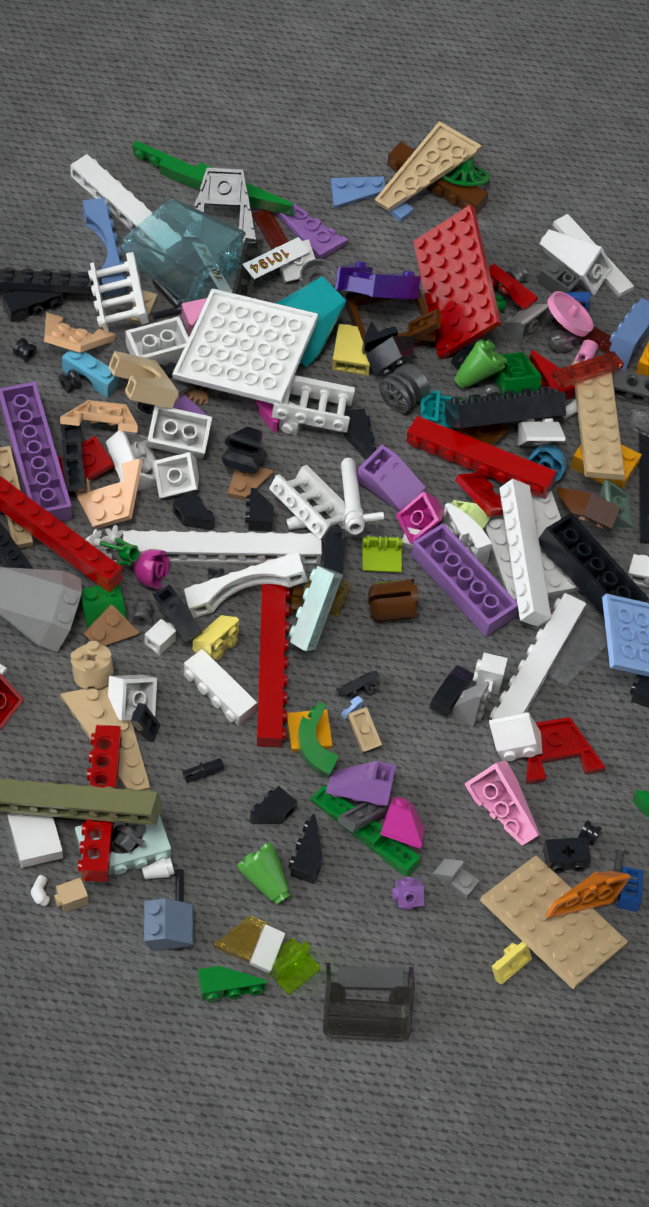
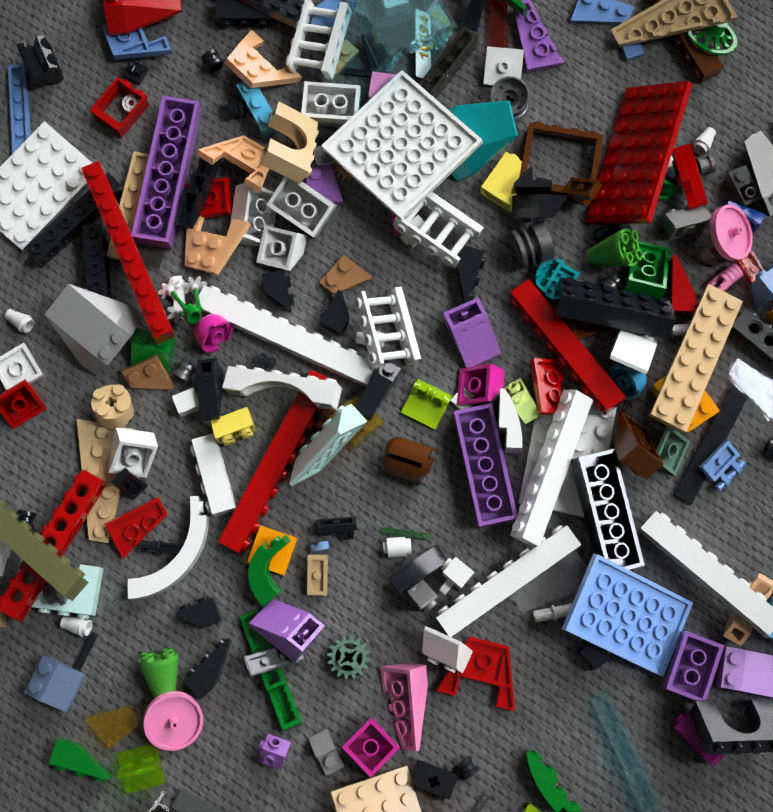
camera: 35 degrees right, 20 degrees up
(167, 761) = (135, 524): none -> red wing
(220, 796) = (184, 561): none -> white arch
(245, 450) = (351, 250): black piece -> none
(267, 948) = (126, 746): white tile -> none
(276, 258) = (482, 58): white sticker -> none
(299, 907) = (173, 720): none -> bright pink piece
(354, 515) = (413, 360): white cylinder -> none
(359, 279) = (543, 118): dark purple wedge -> none
(403, 823) = (301, 687): dark pink slope -> none
(423, 666) = (404, 534): none -> green piece
(423, 678) = (397, 547): none -> white brick
(424, 780) = (343, 649): none -> sand green gear
(495, 849) = (370, 747): none -> dark pink slope
(504, 258) = (703, 143): none -> white cone
(587, 369) = (714, 301): clear red tile -> none
(592, 675) = (551, 613): none -> white axle

